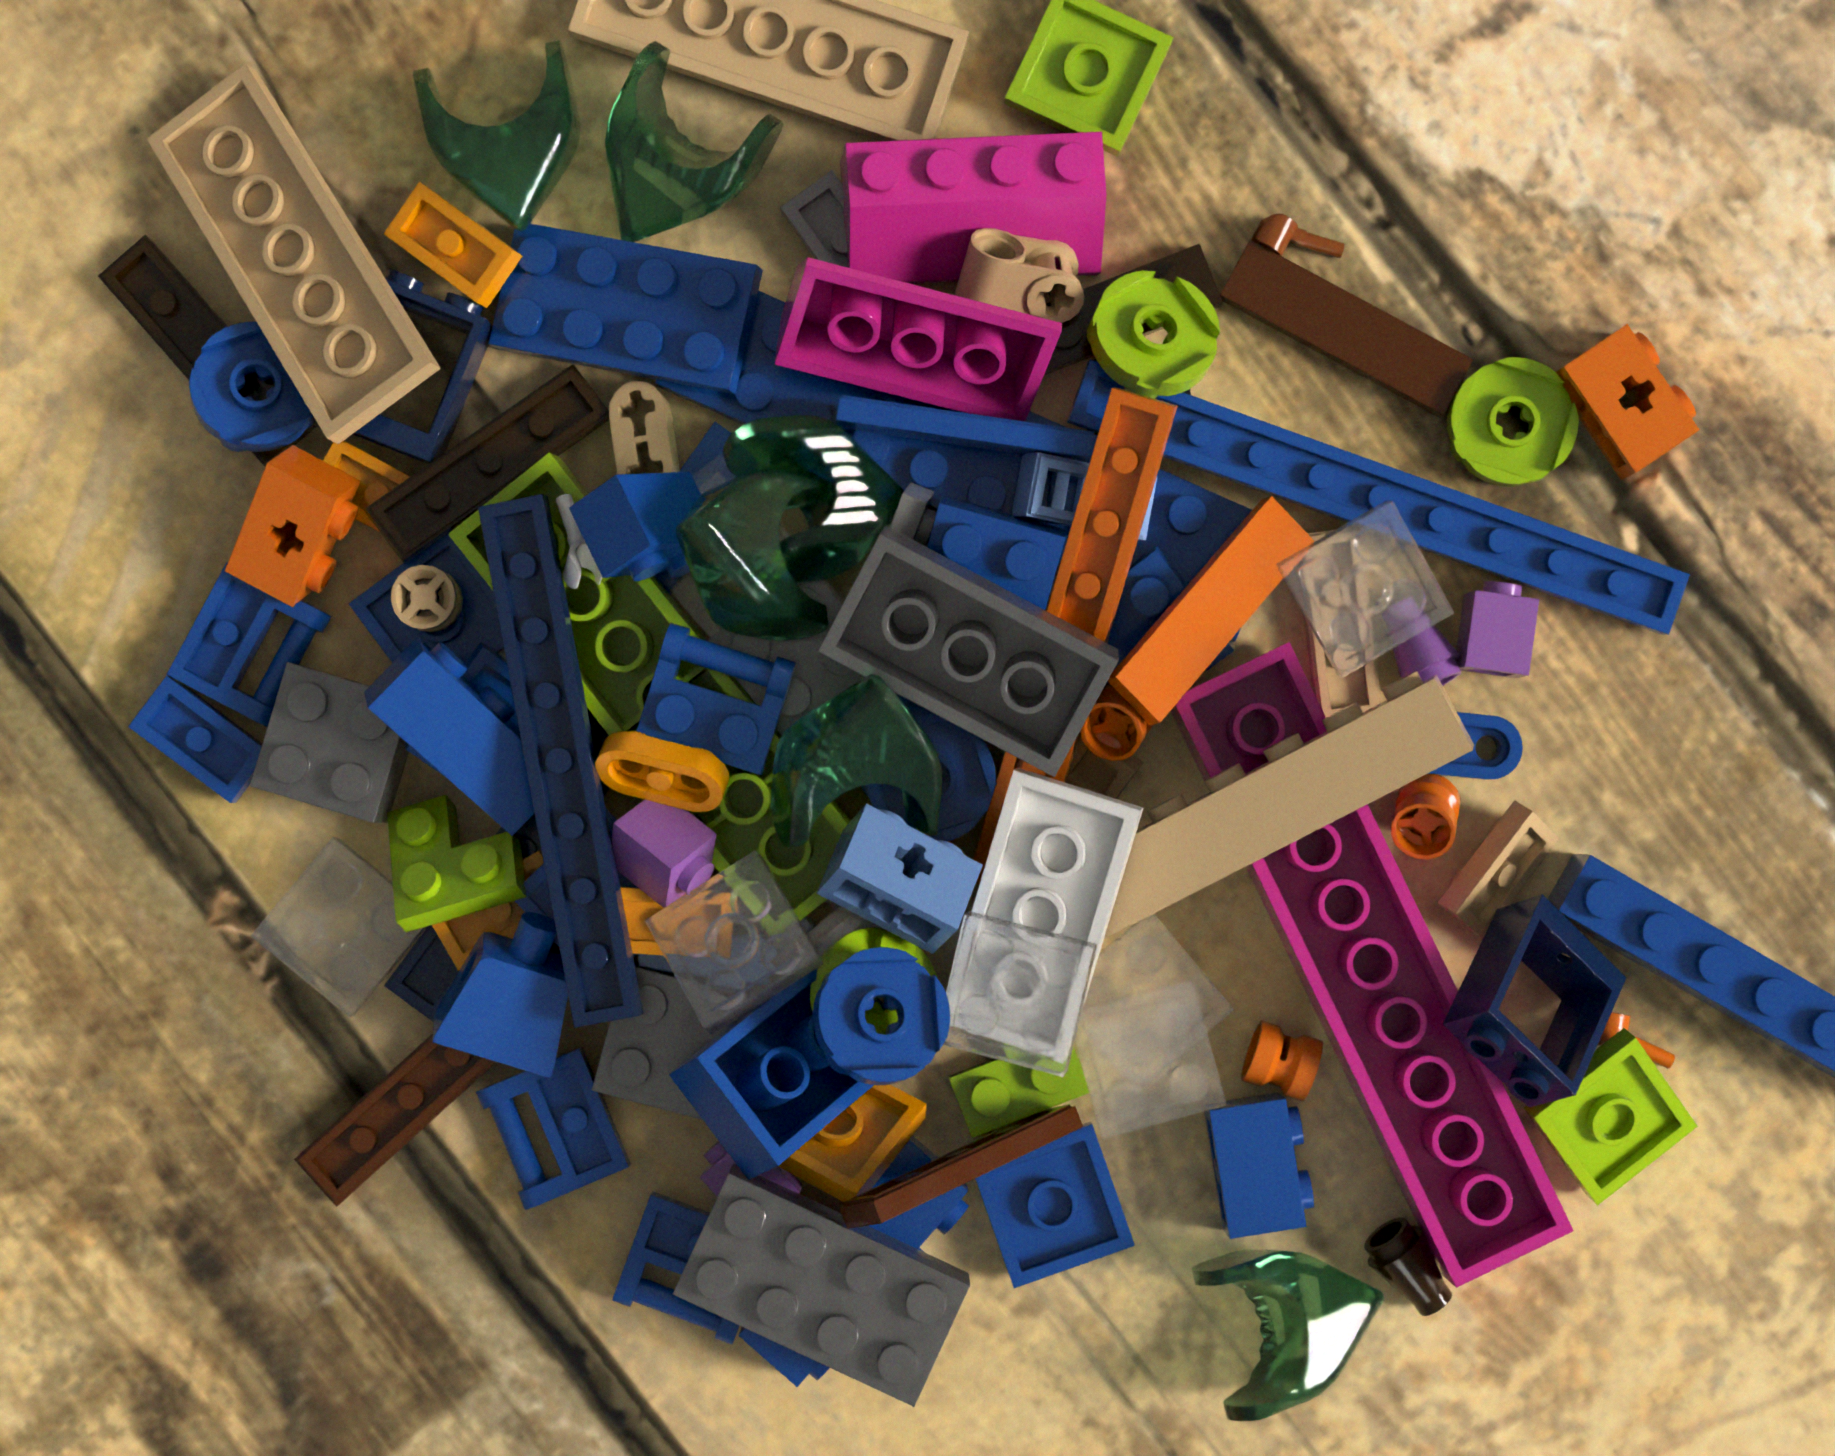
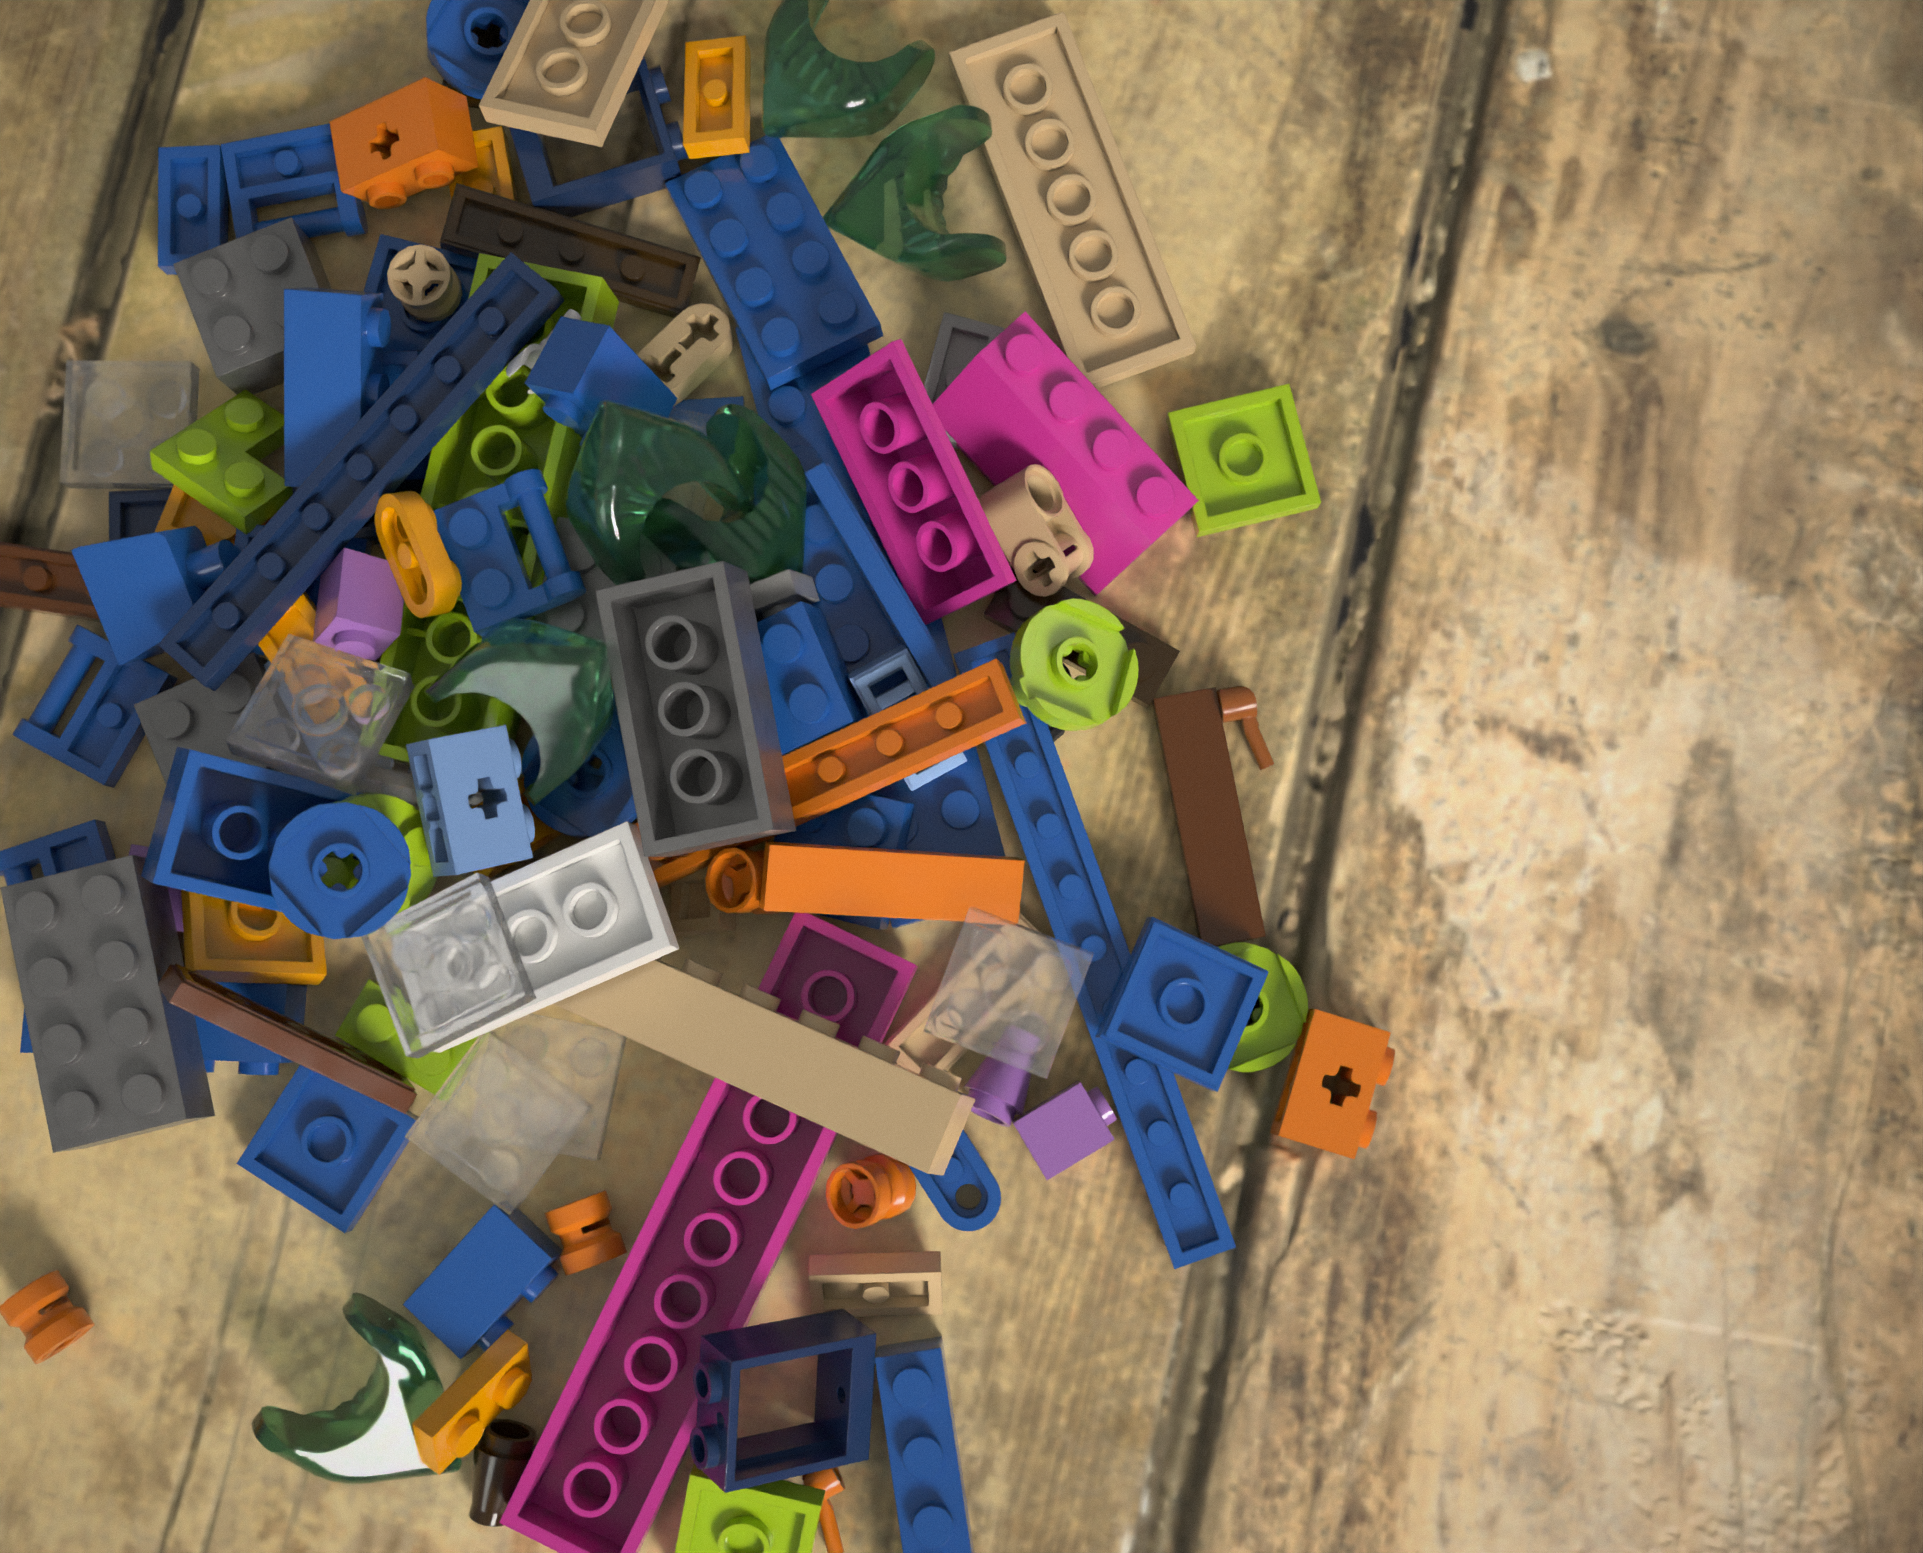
camera: 55 degrees right, 5 degrees down
(1351, 1257) = (463, 1411): none -> light orange plate
(1478, 464) = (1182, 1004): none -> blue tile

